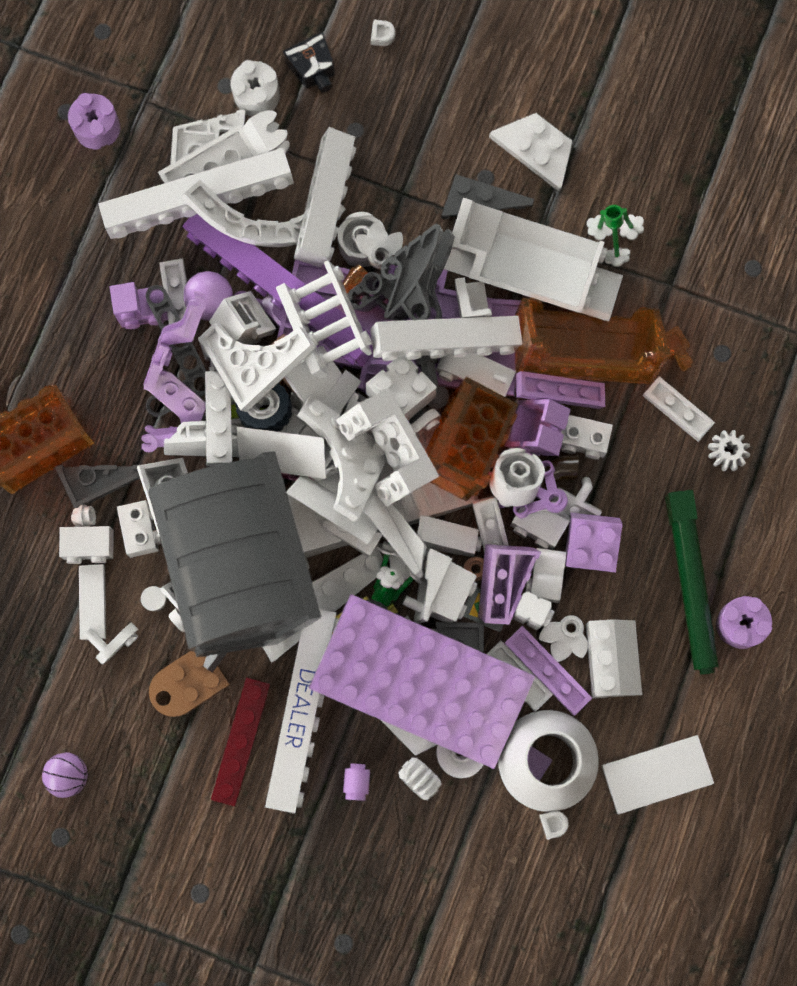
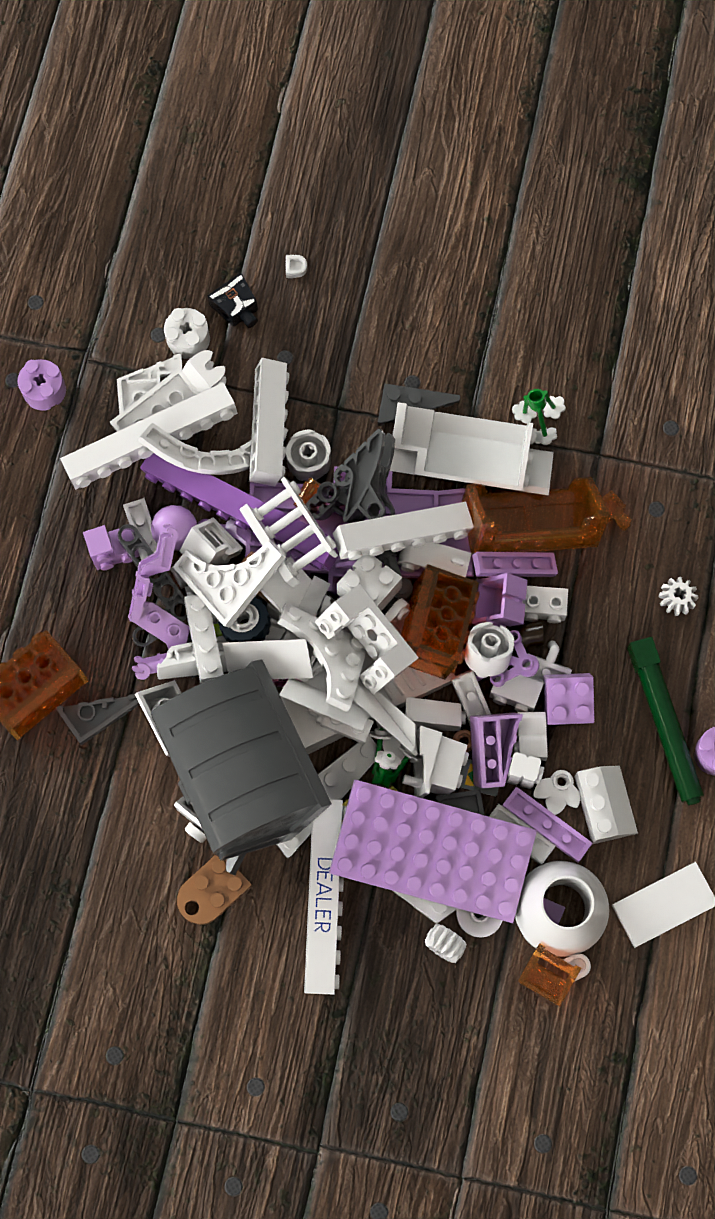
camera: 10 degrees left, 5 degrees down
(64, 775) = (110, 994): lavender piece -> none
(83, 516) = (89, 750): white plate -> none
(86, 543) = (96, 775): white brick -> none
(92, 600) = (110, 829): white tile -> none
(125, 637) = (148, 856): white piece -> none
(138, 529) = (143, 753): white brick -> none
(153, 598) = (167, 816): white tile -> none
(240, 742) = (271, 937): dark red plate -> none
(356, 782) = (386, 957): lavender brick -> none
(378, 242) = (325, 454): white plate -> none
(471, 299) = (419, 493): white panel -> none
(517, 834) = (545, 981): none -> clear orange plate
(537, 147) = (455, 348): white wing -> none
(678, 409) = (625, 565): white tile -> none

